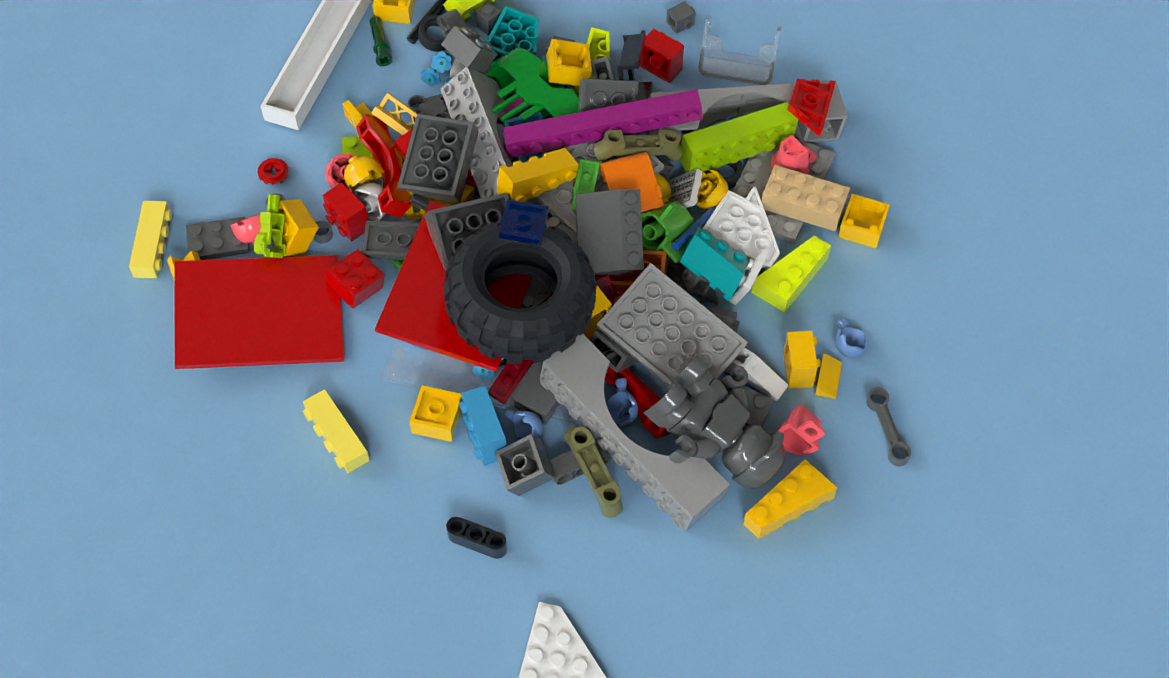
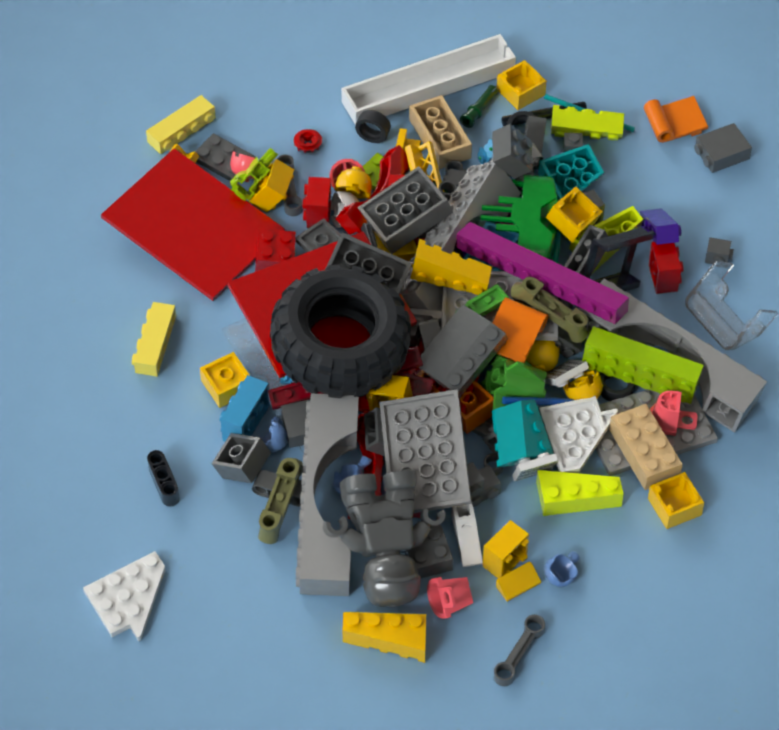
camera: 45 degrees right, 5 degrees down
(316, 109) = (369, 134): none -> black tyre
(372, 79) = (437, 124): none -> tan brick
(523, 222) = (380, 283): clear blue tile -> none
(605, 93) = (568, 253): dark grey plate -> none
(631, 24) = (663, 225): none -> dark purple brick
(811, 102) = (720, 378): red wing -> none

